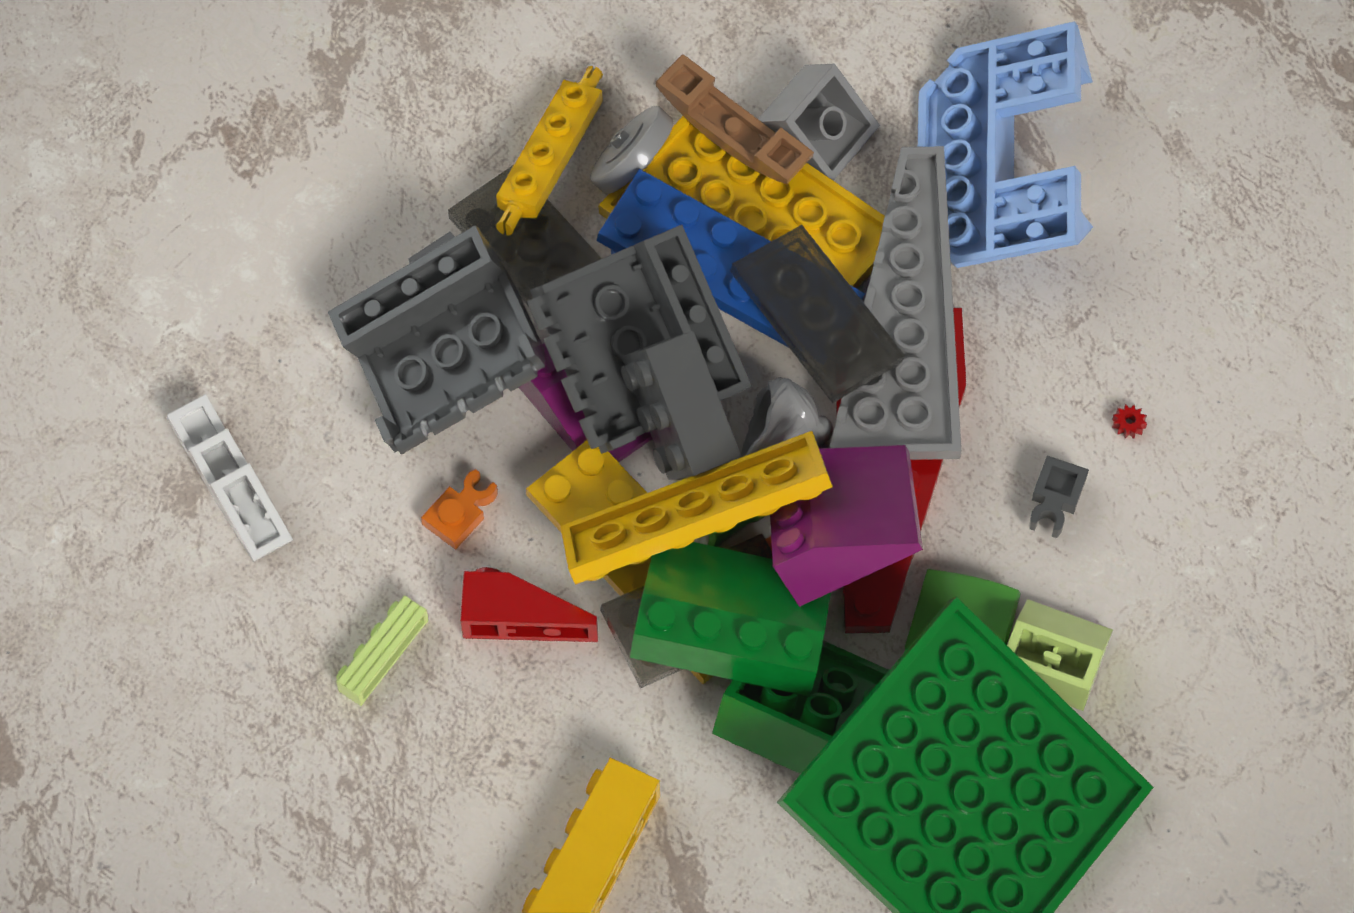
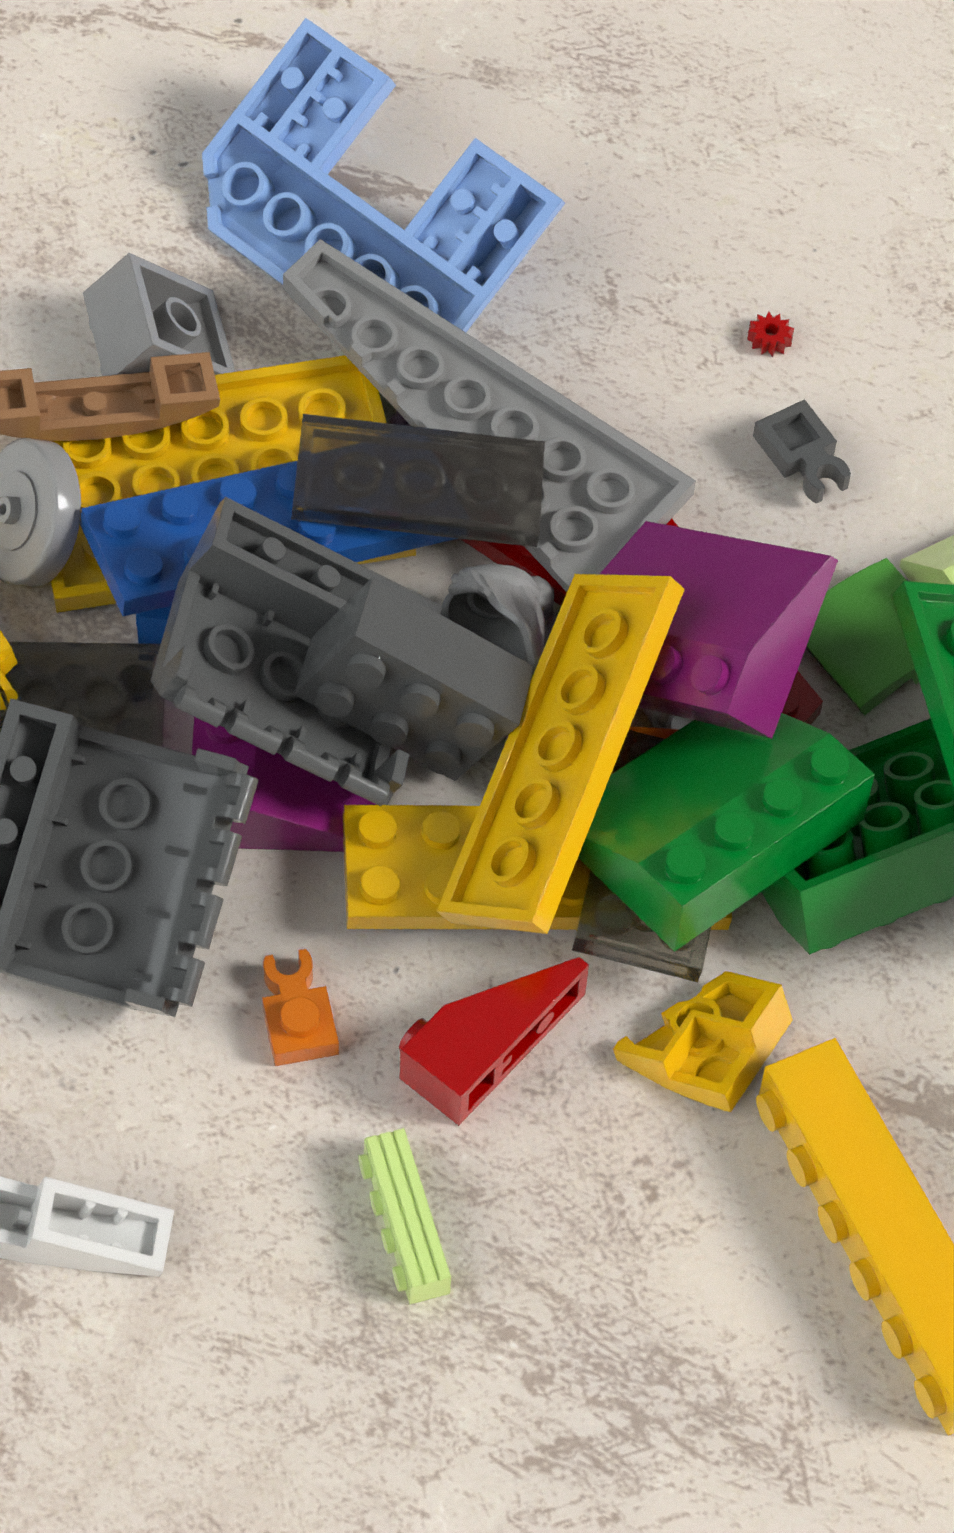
camera: 55 degrees left, 5 degrees down
(620, 725) = (712, 1040): none -> yellow slope

